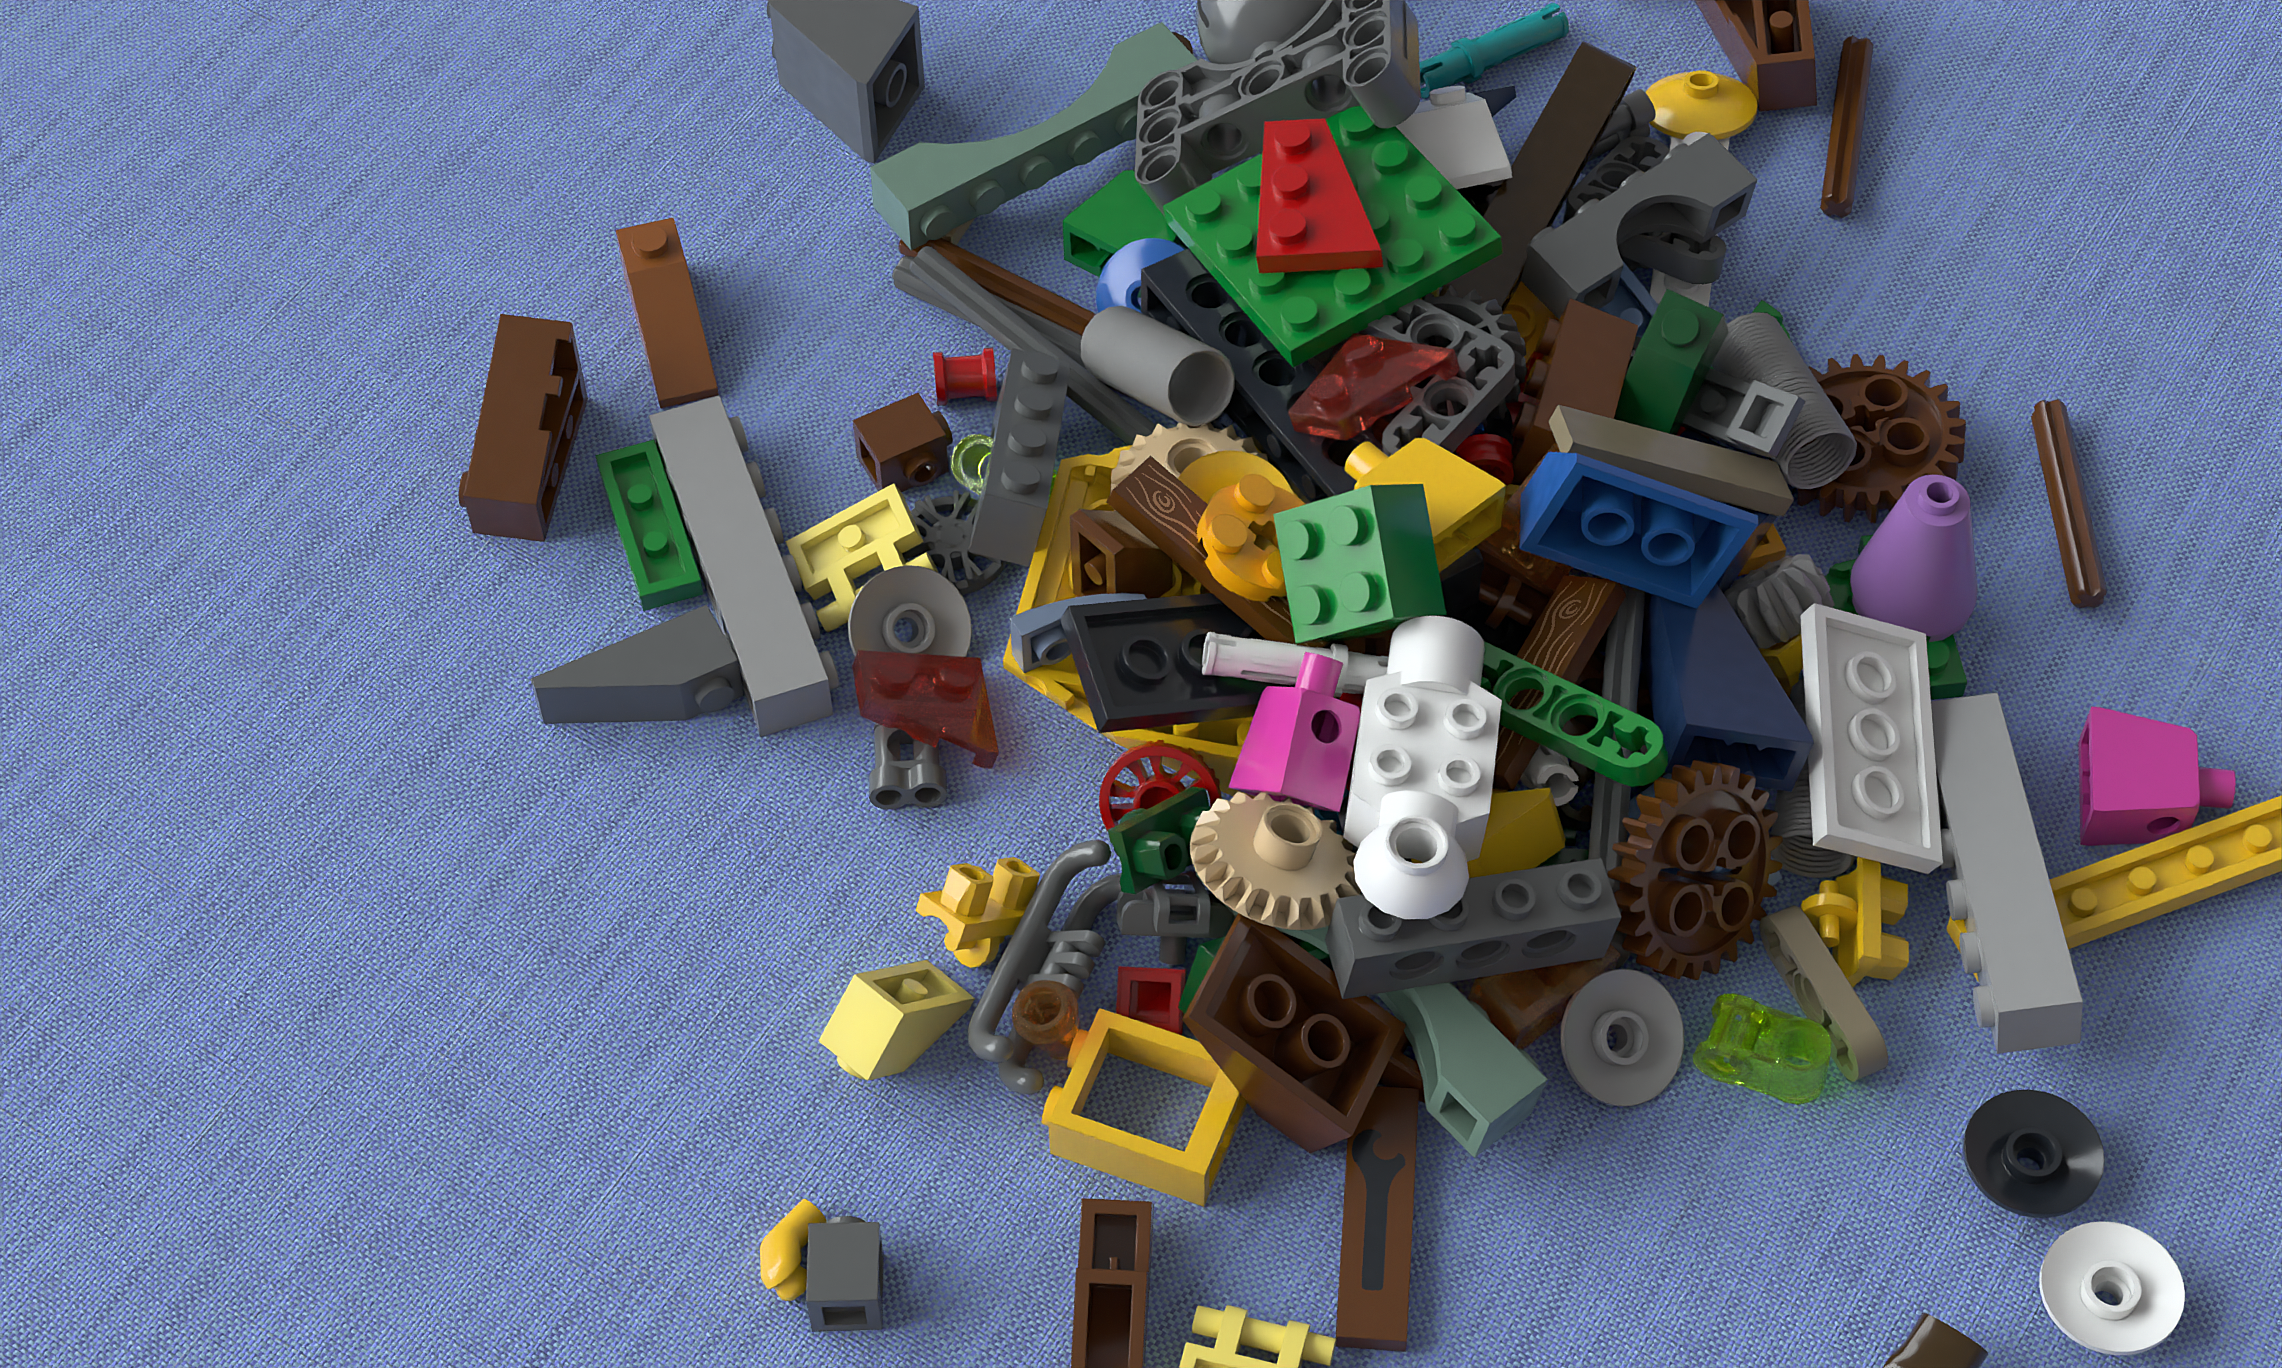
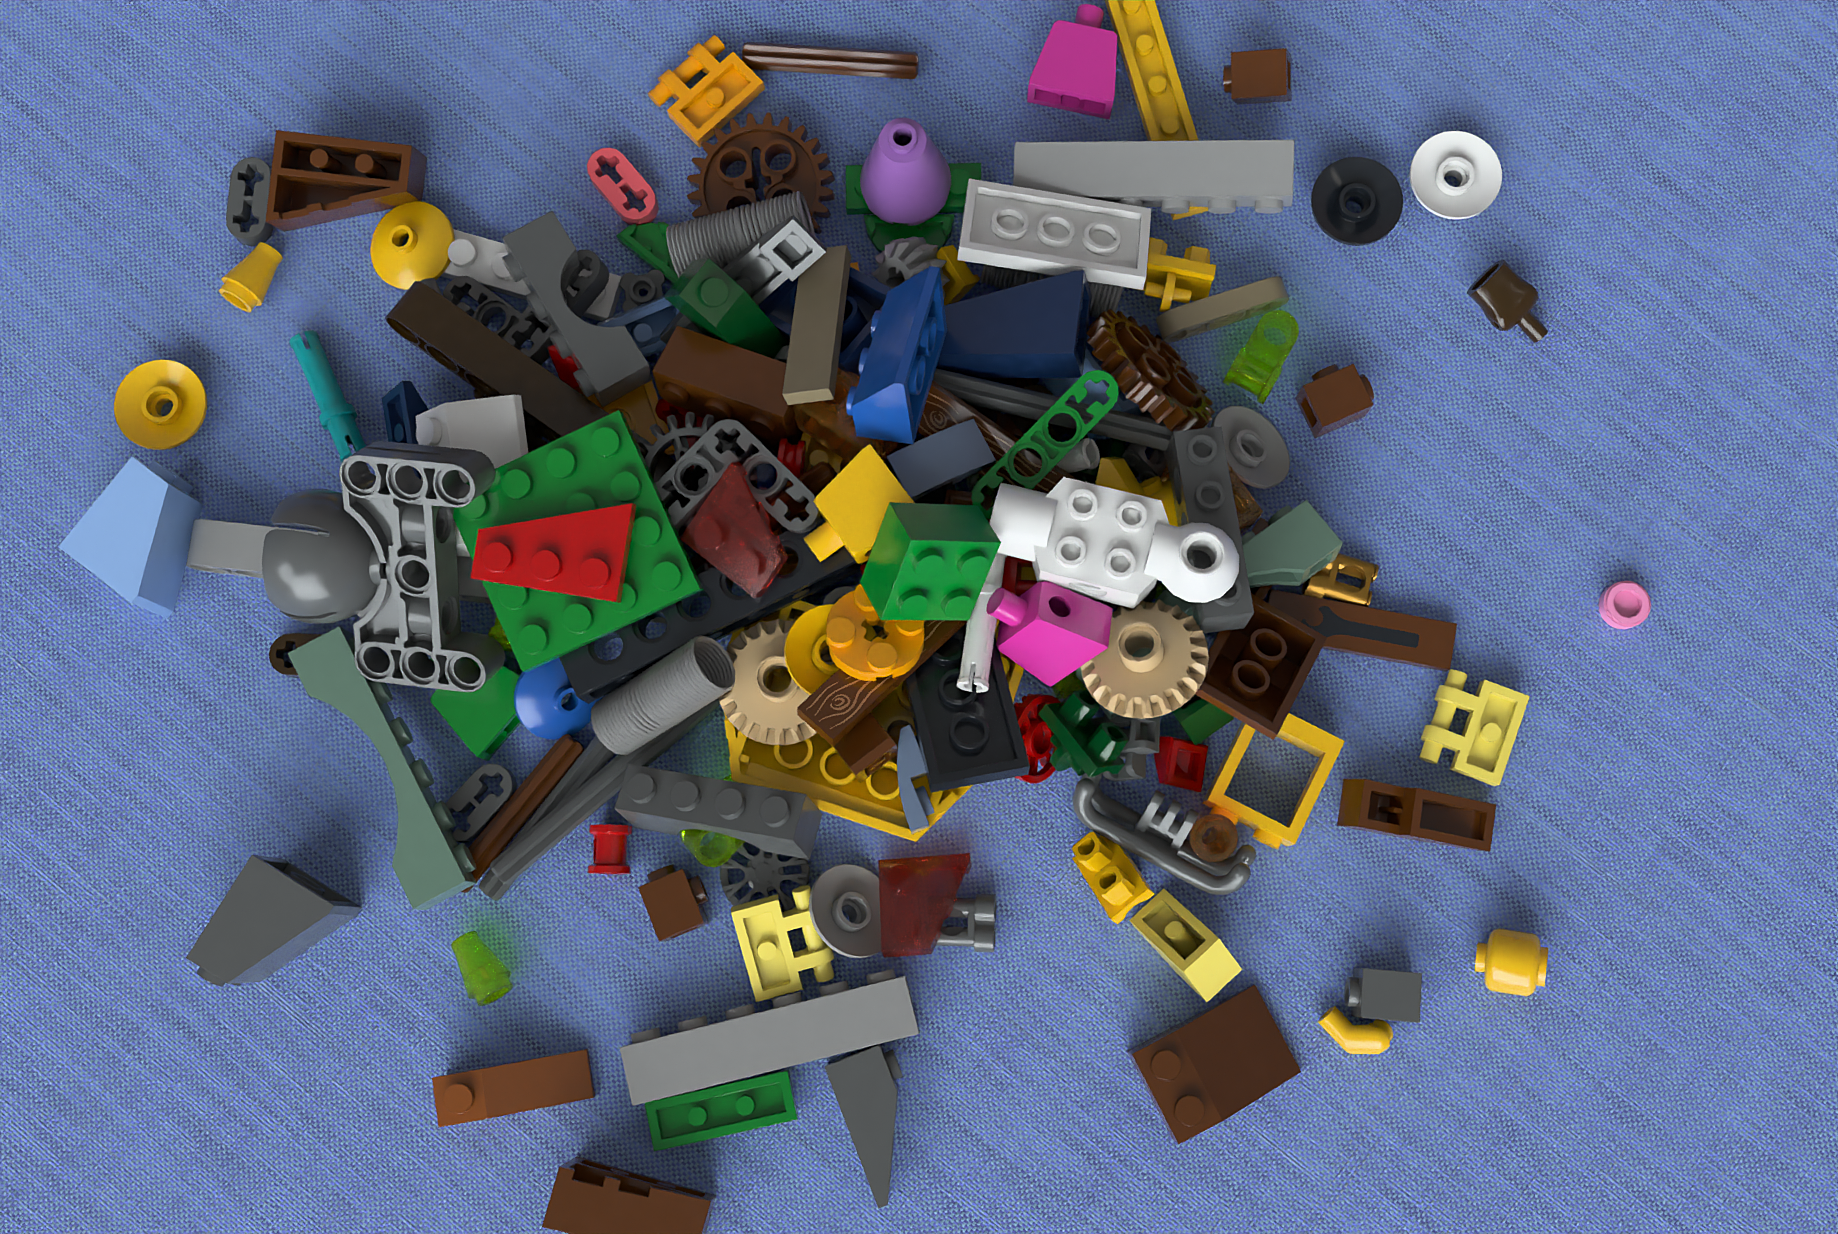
camera: 80 degrees left, 25 degrees up
(735, 1064) = (1214, 1064): none -> reddish brown slope
(802, 272) = (481, 970): none -> clear neon green cone
(1013, 244) = (487, 809): none -> dark grey beam
(1444, 1158) = (1325, 582): none -> pearl gold piece
(1511, 594) = (941, 459): none -> sand blue slope
(1717, 1146) = (1335, 399): none -> reddish brown brick
(1838, 309) = (615, 193): none -> coral beam
(1847, 127) = (449, 139): reddish brown axle -> none
(1982, 383) = (714, 98): none -> light orange plate
(2188, 988) = (1259, 76): none -> reddish brown brick

